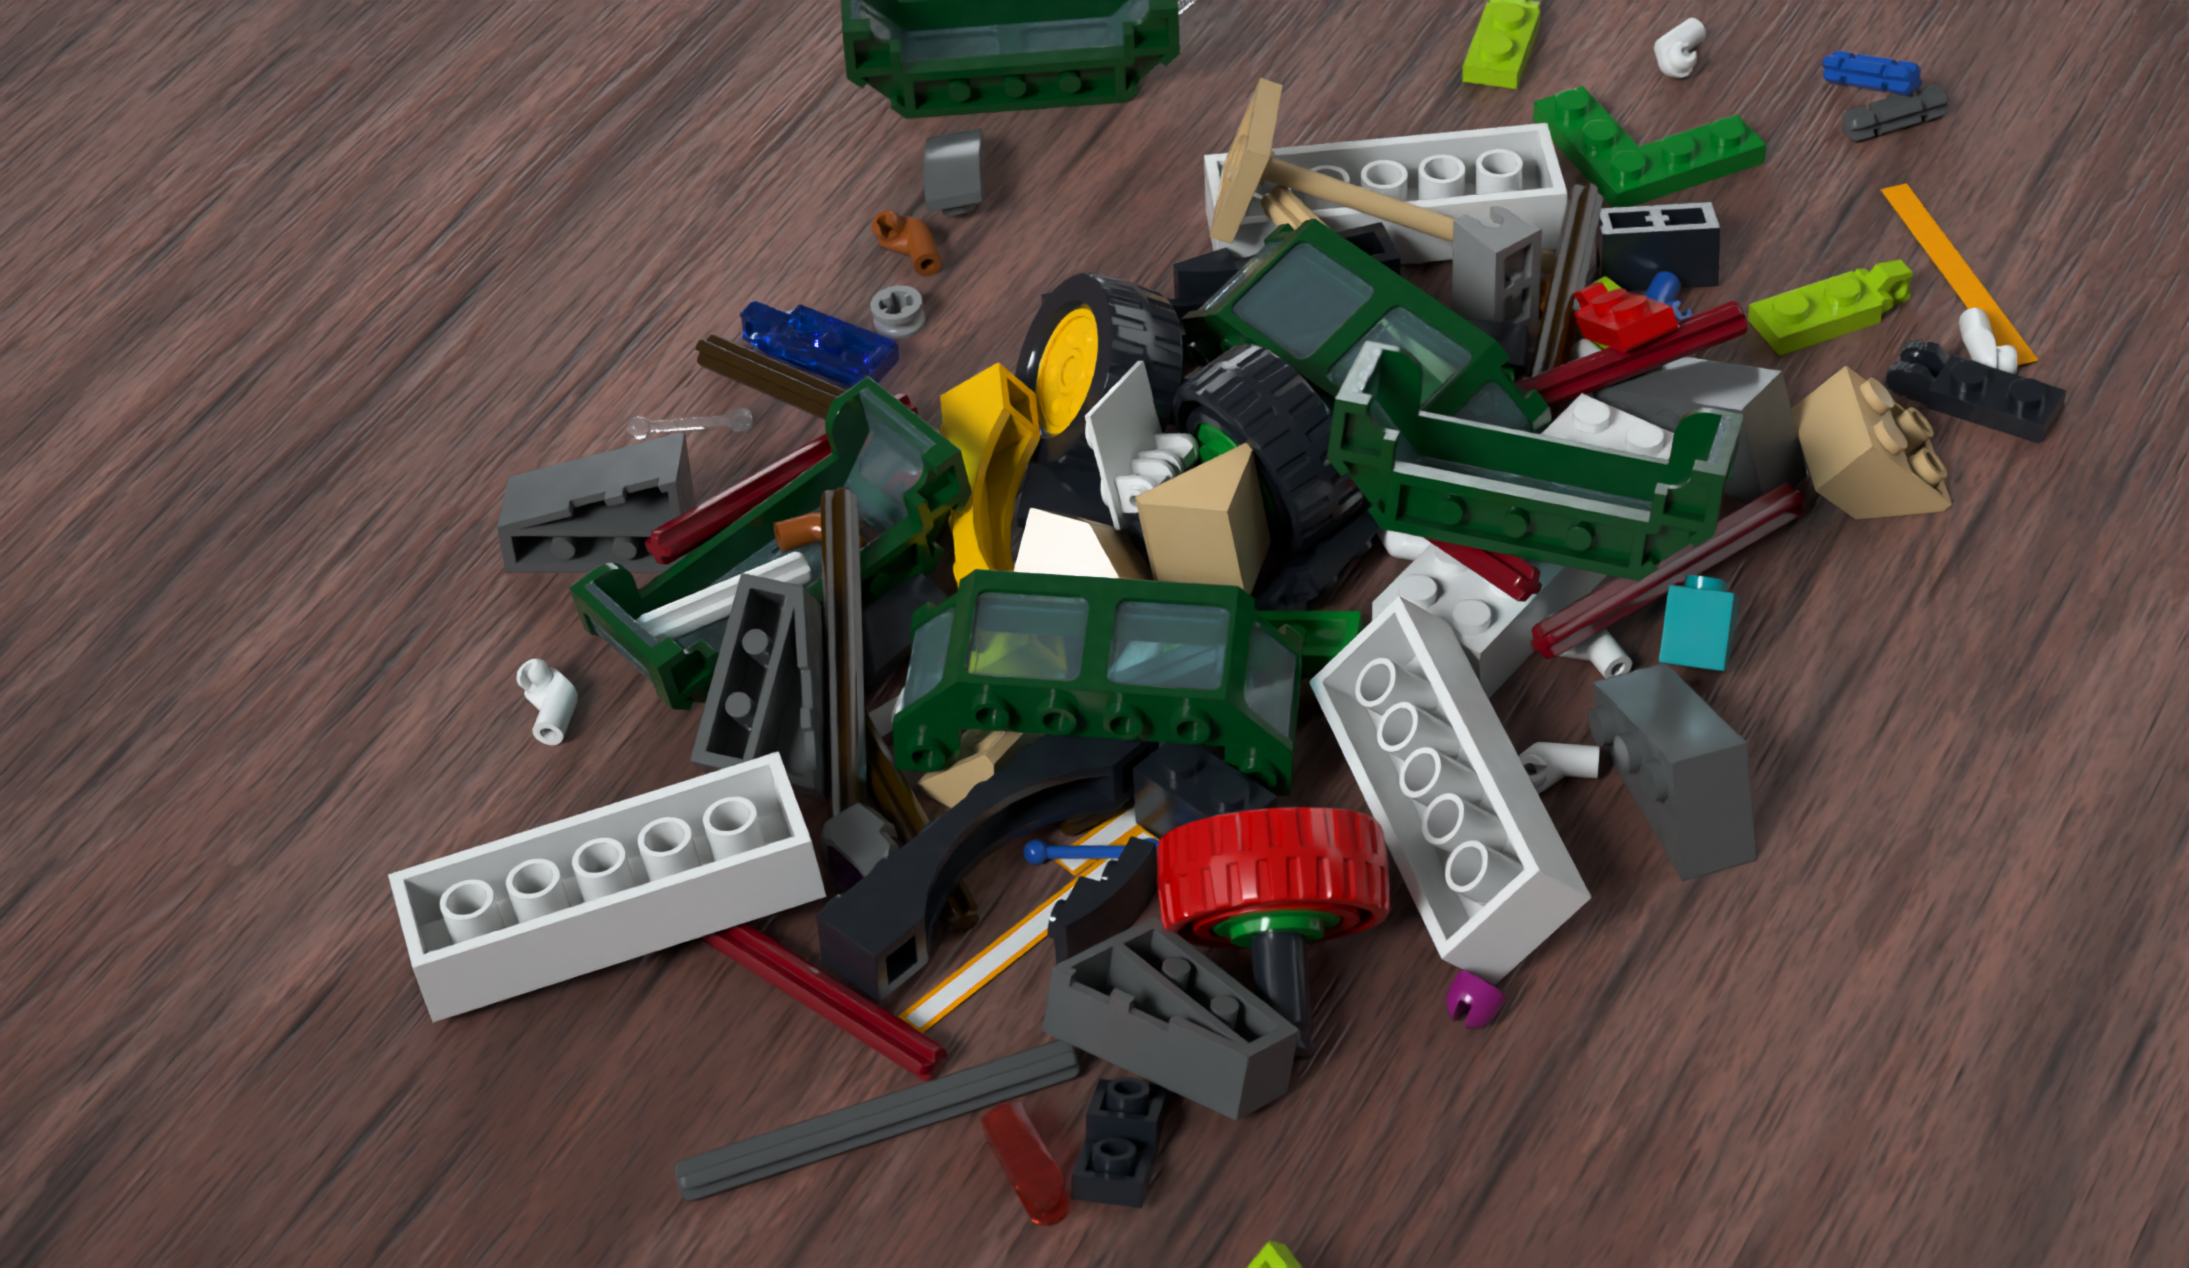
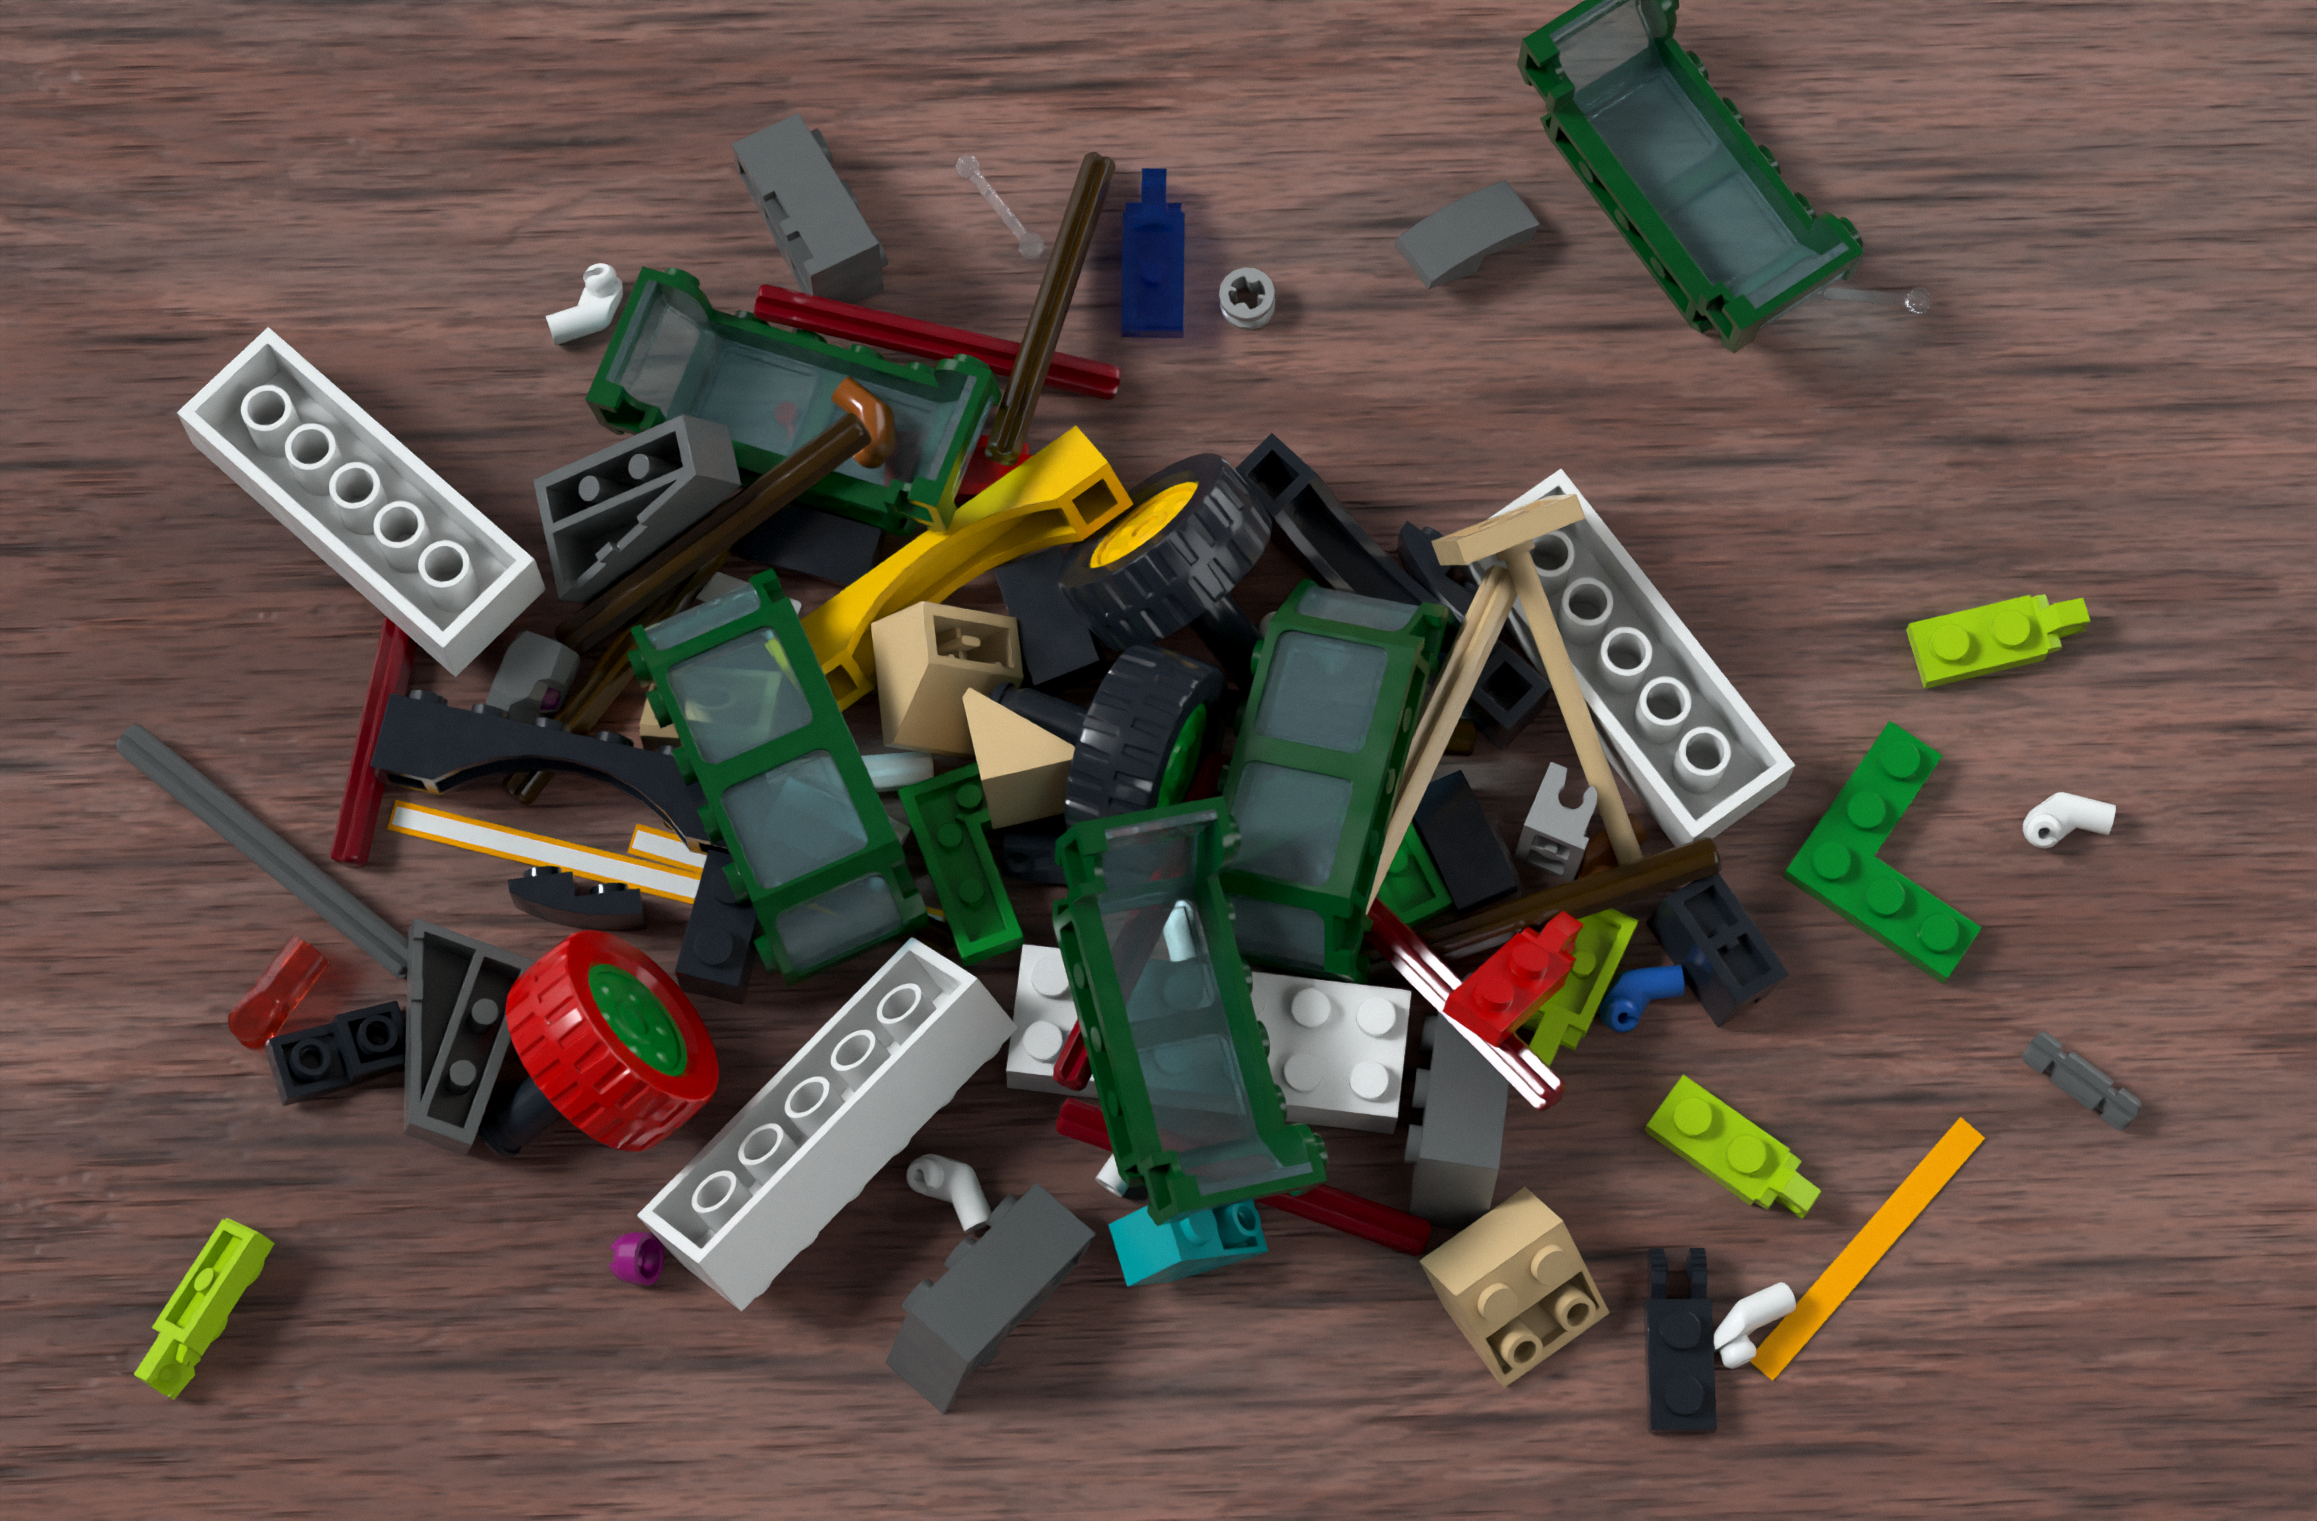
camera: 55 degrees right, 30 degrees up
(716, 601) = (734, 391): white axle -> none
(908, 237) = (1356, 250): dark orange arm -> none
(1038, 852) = (673, 899): blue hinge -> none
(1131, 445) = (1056, 640): white hinge -> none
(1872, 73) = (2118, 1032): blue axle -> none

